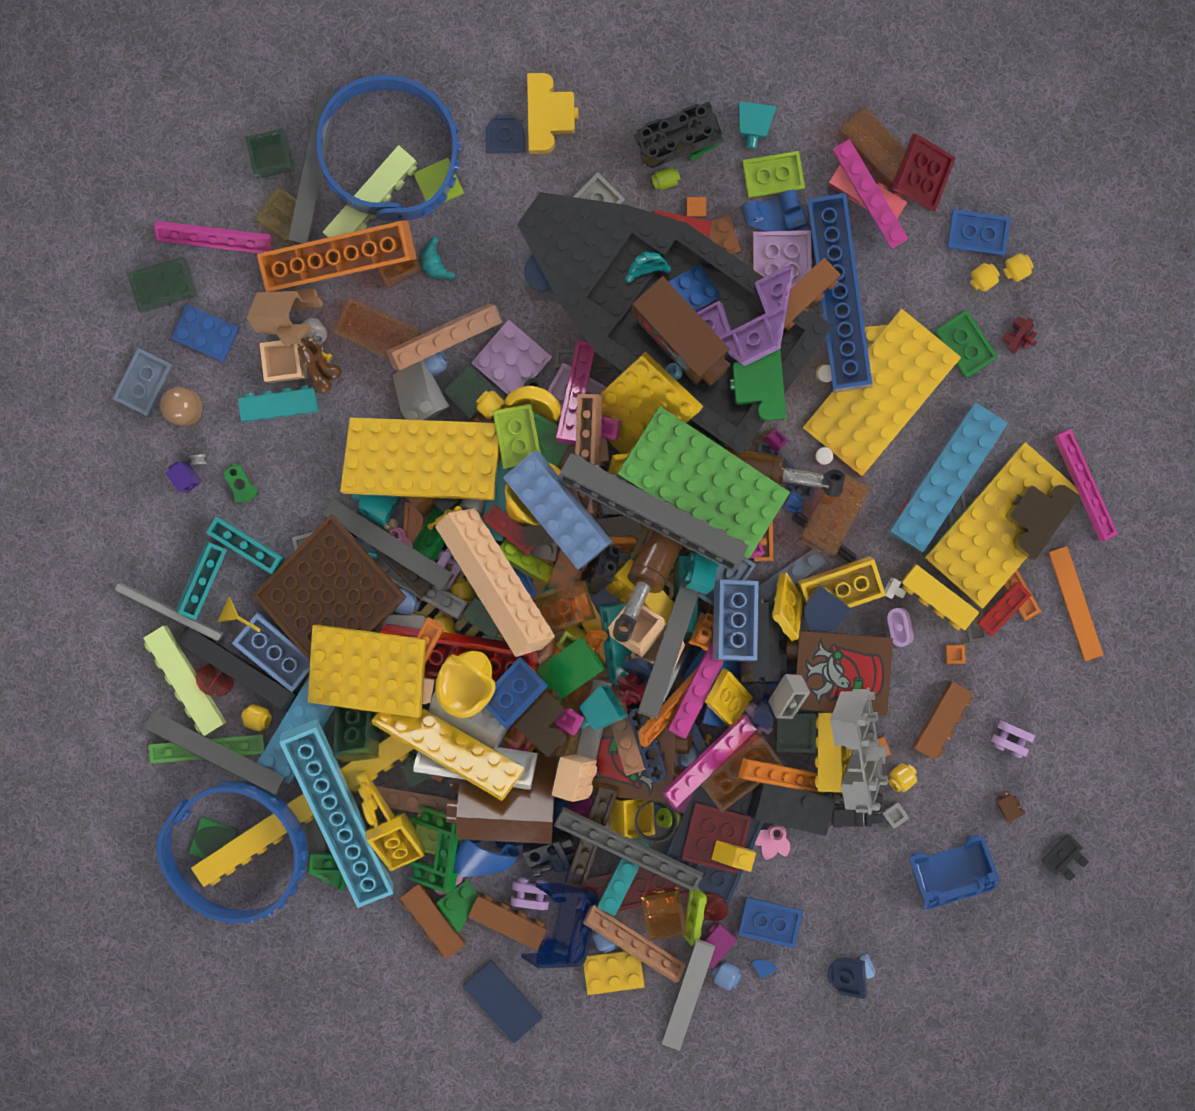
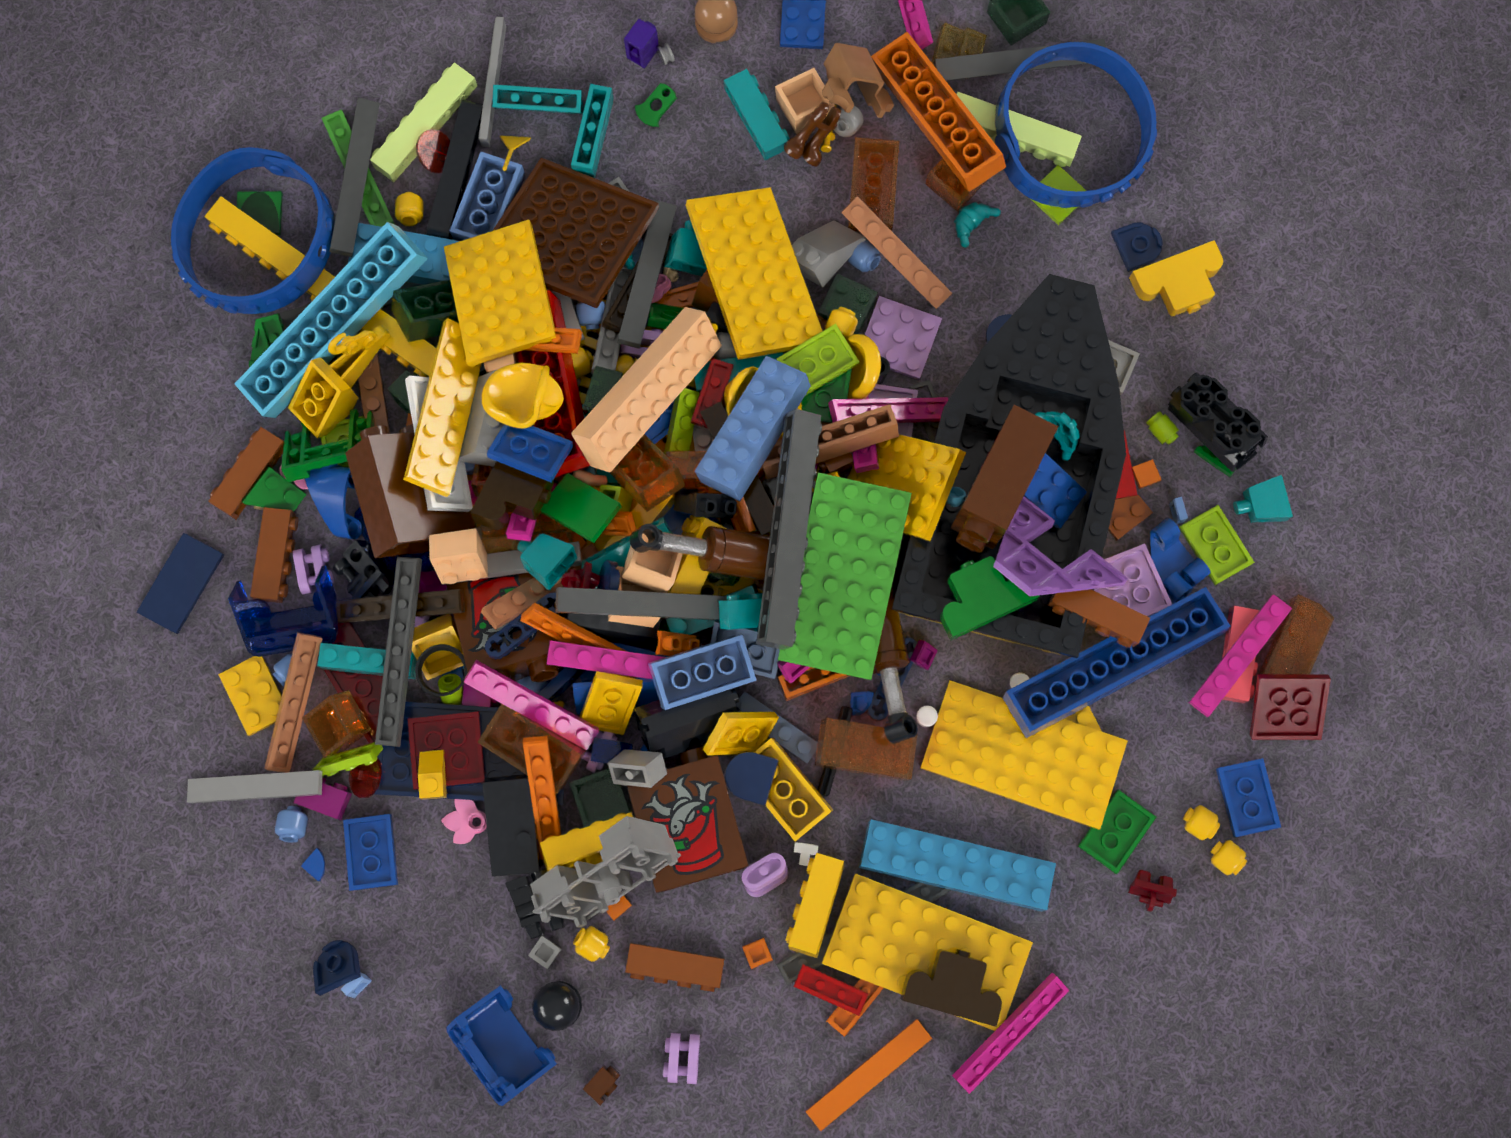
camera: 70 degrees right, 10 degrees down
(736, 194) = (1178, 510): none -> medium blue tile
(939, 819) = (557, 1005): none -> black tile

